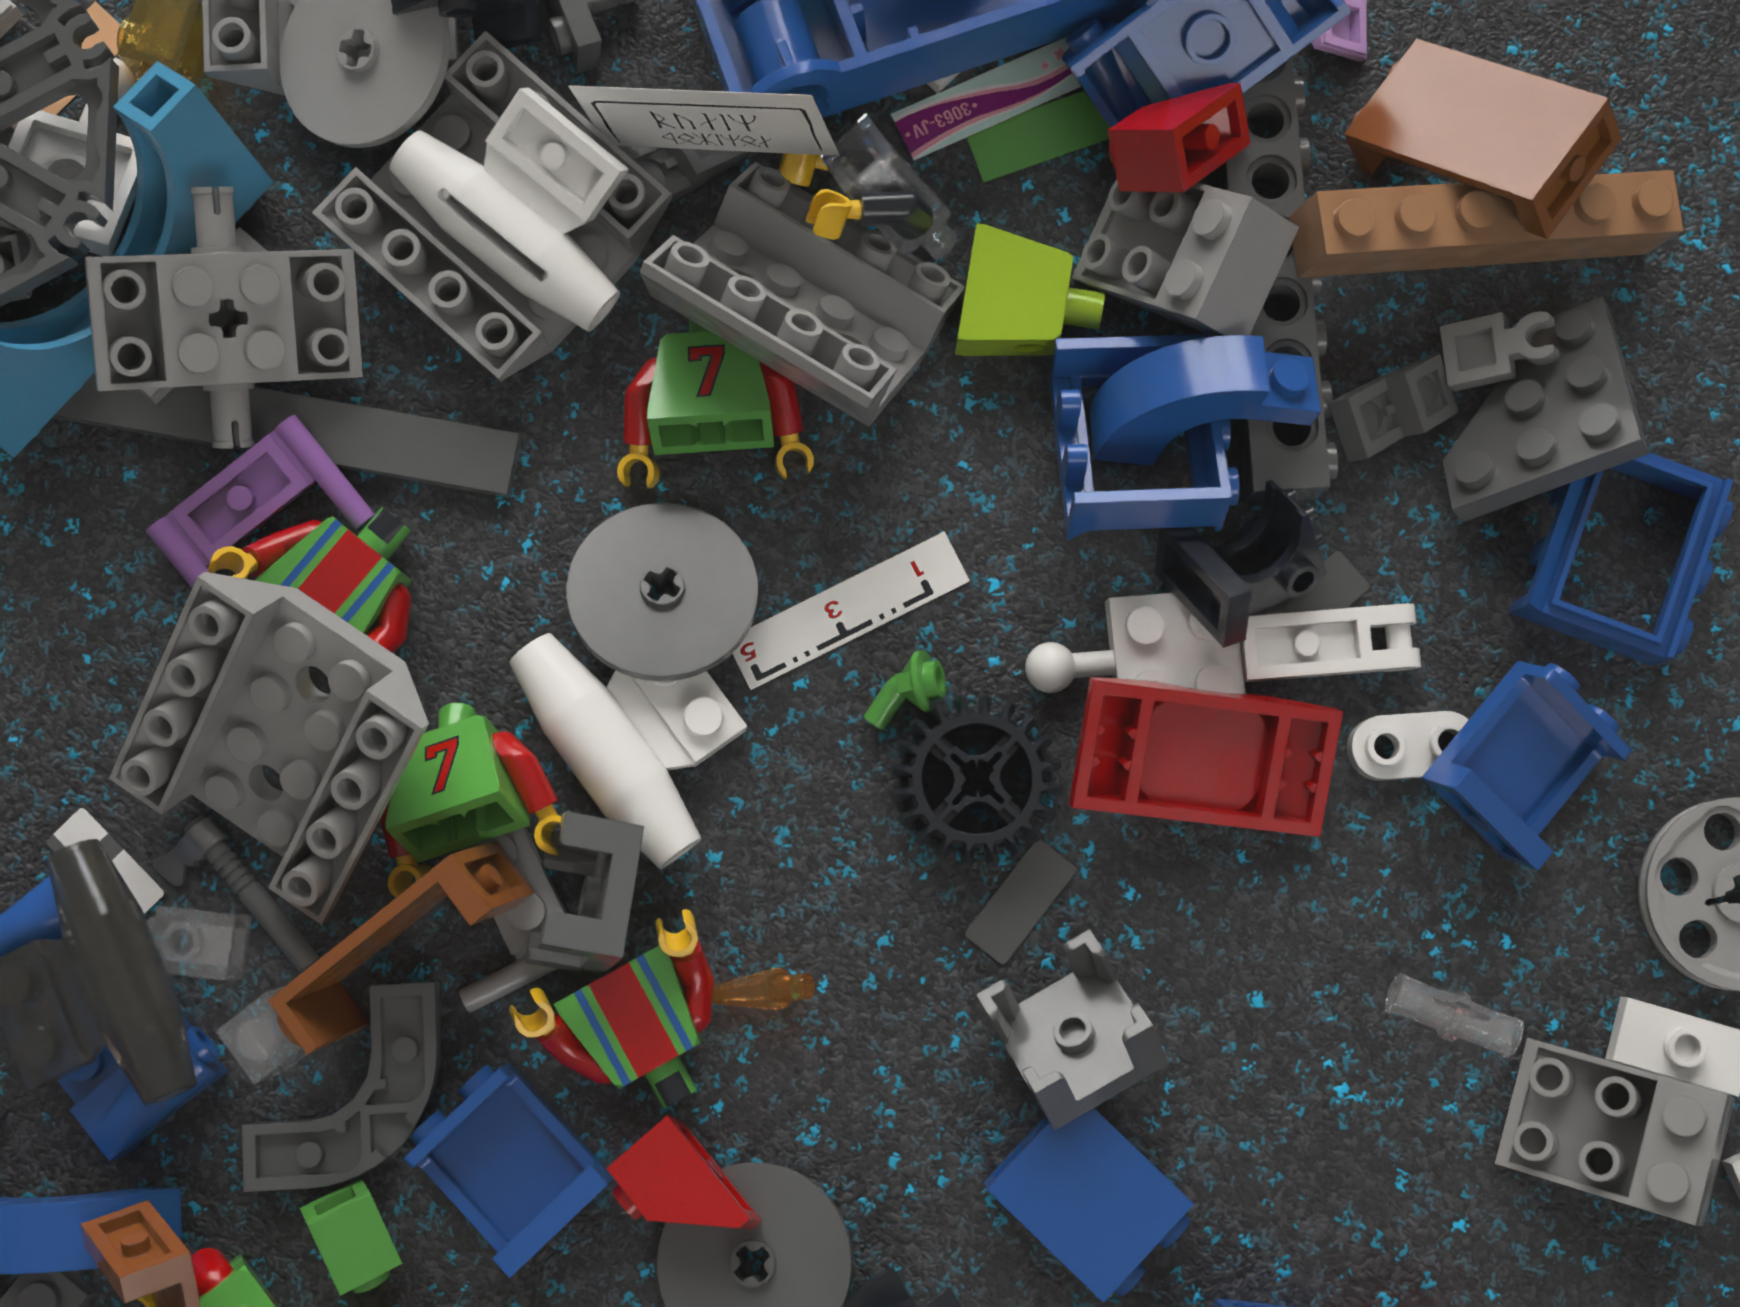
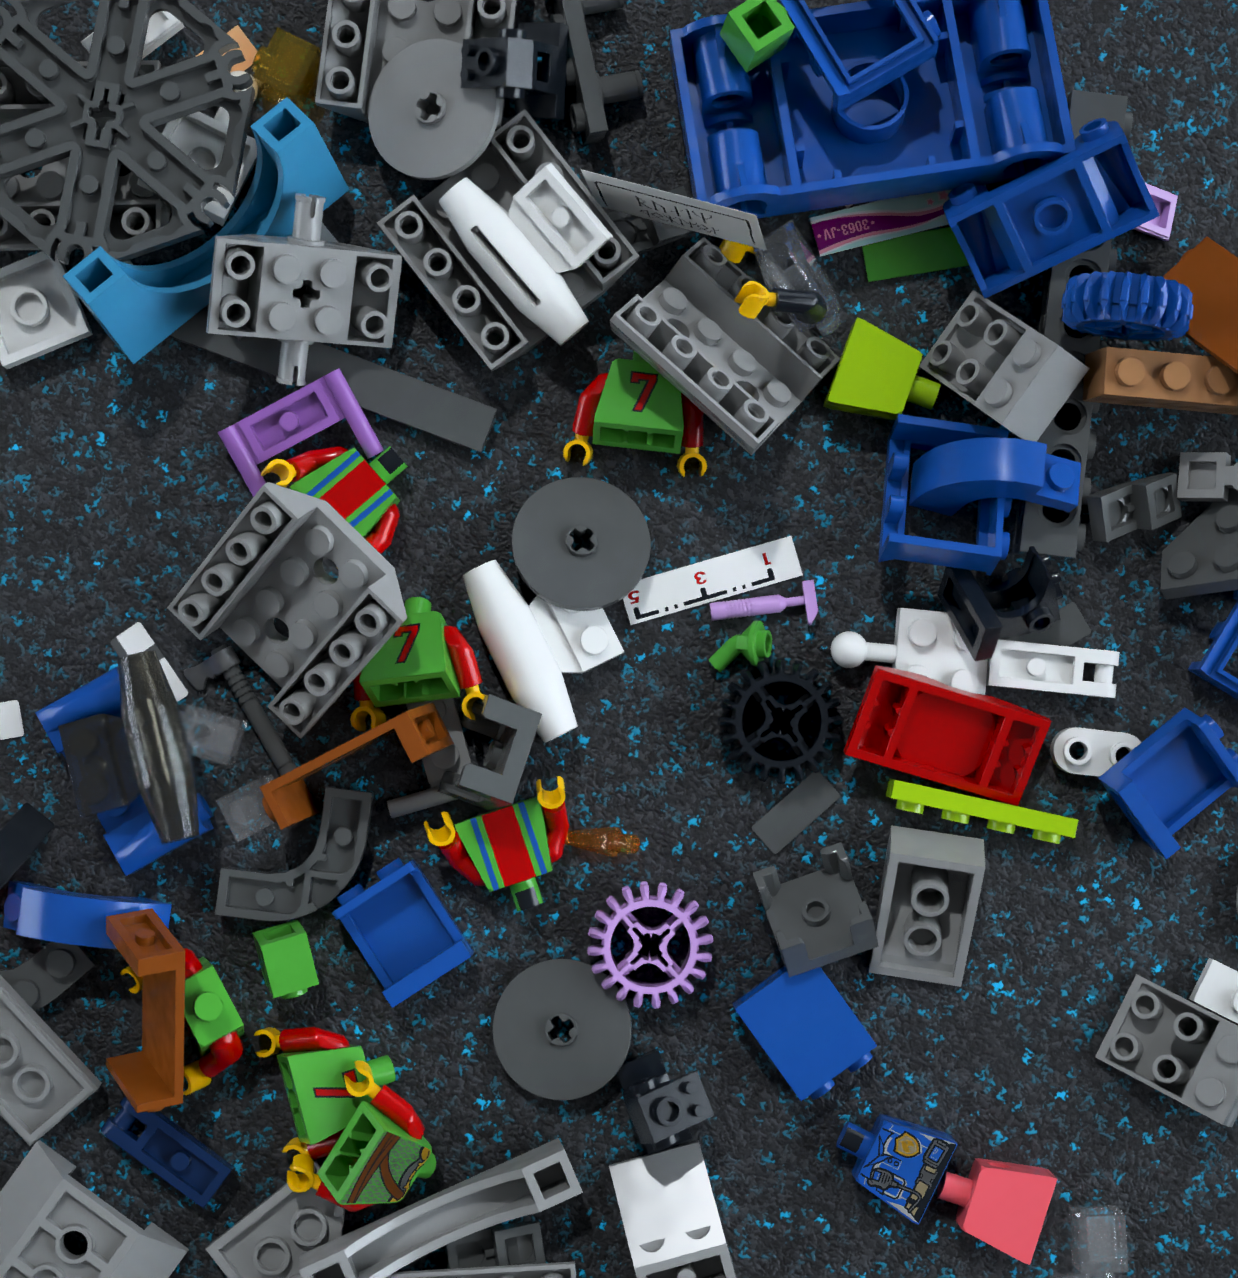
camera: 10 degrees right, 5 degrees up
(677, 1181) = (519, 963): red slope -> none
(899, 1156) = (620, 971): none -> lavender gear
(929, 629) = (767, 605): none -> lavender piece
(1179, 140) = (1015, 286): red slope -> none
(1225, 996) = (927, 905): none -> light grey slope
(1299, 853) = (1000, 815): none -> lime plate
(1333, 134) = (1127, 306): none -> blue gear
(1454, 1015) = (1087, 949): clear pin -> none

